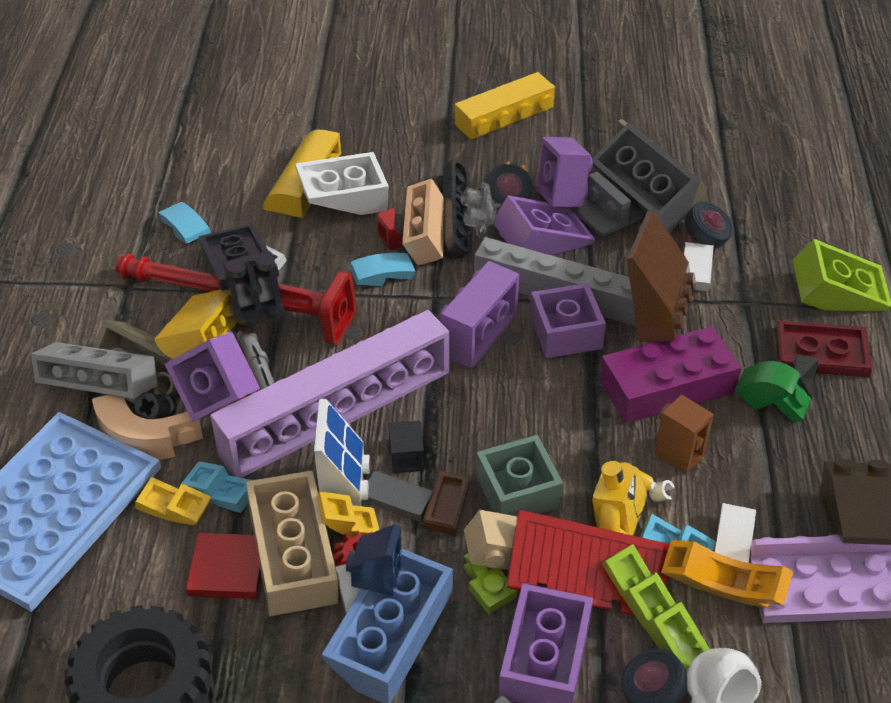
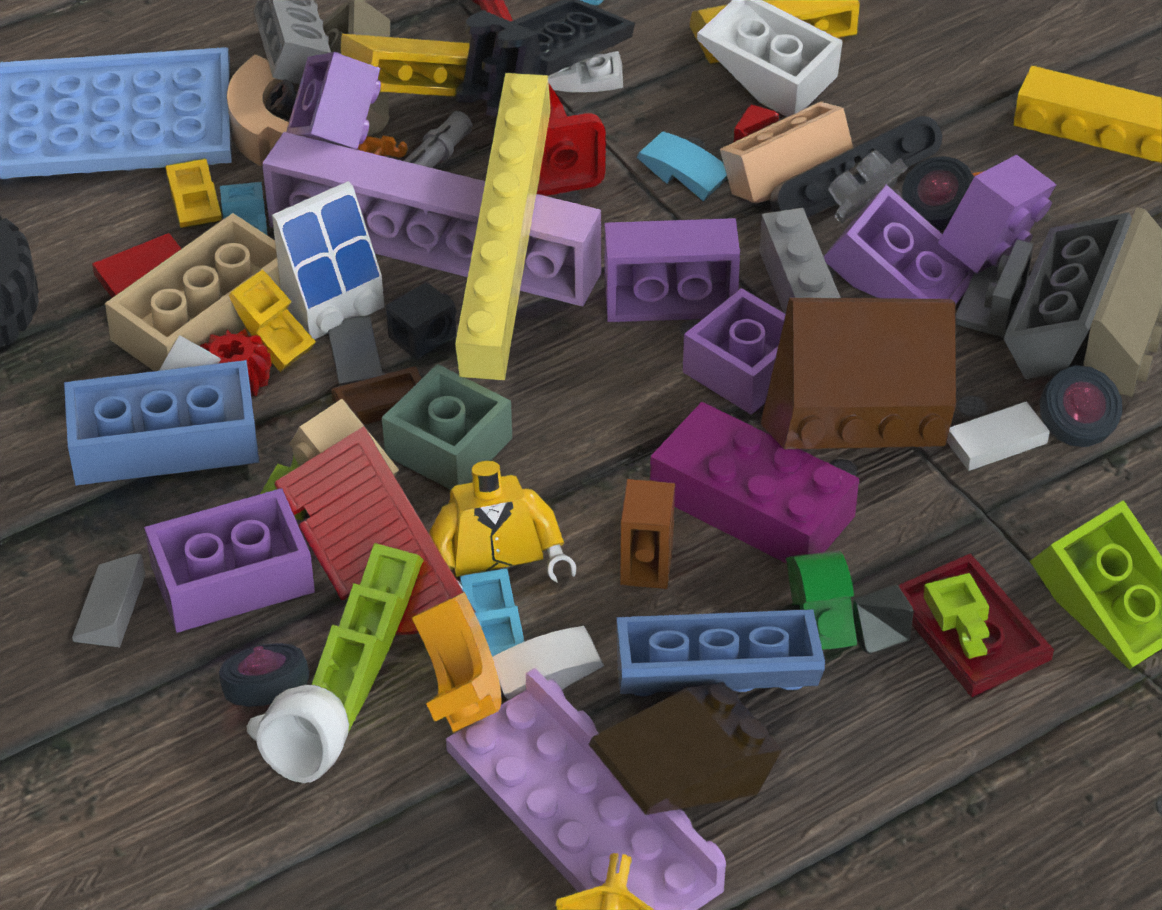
camera: 55 degrees right, 0 degrees up
(377, 560) = (192, 354): dark blue slope -> none
(417, 353) = (503, 228): none -> light yellow brick
(800, 453) = (715, 648): none -> medium blue slope
(826, 341) = (960, 605): none -> lime plate

